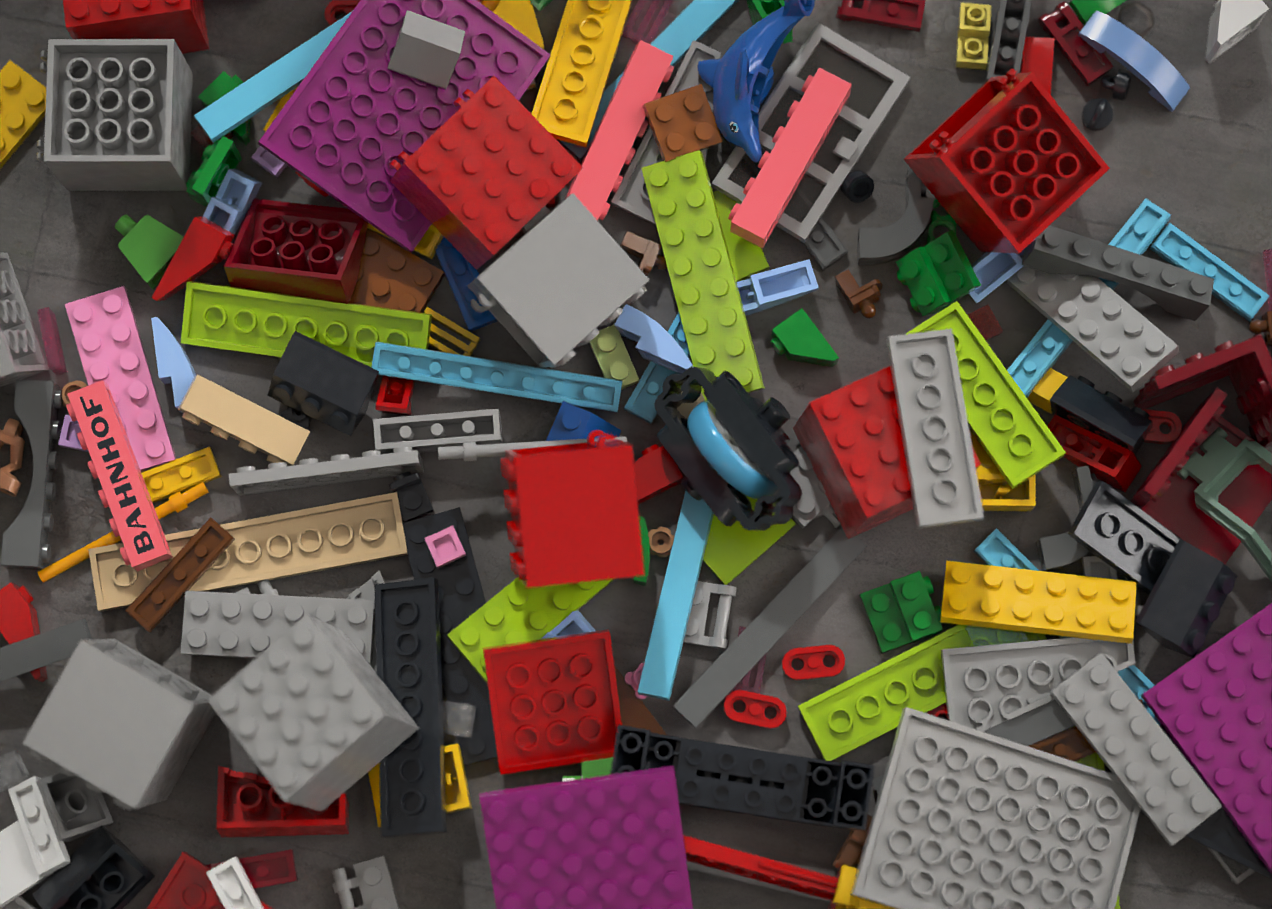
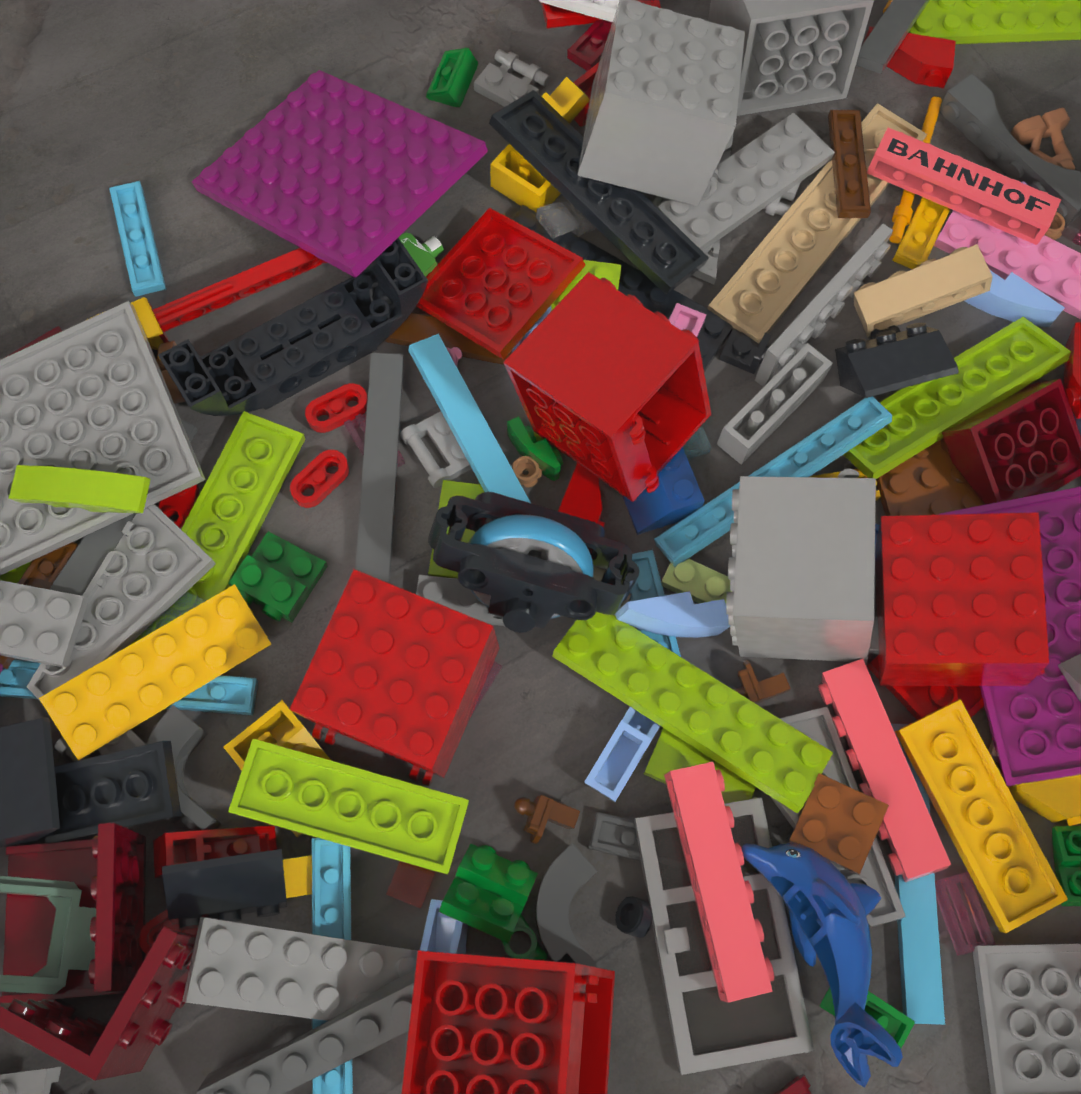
camera: 130 degrees right, 10 degrees down
(361, 808) = (567, 99): none -> yellow panel
(395, 395) = (830, 397): red slope -> none
(471, 451) = (734, 394): light grey bar -> none
(802, 341) = (556, 728): green slope -> none
(934, 428) = (357, 696): light grey plate -> none
(999, 766) = (80, 489): none -> lime slope

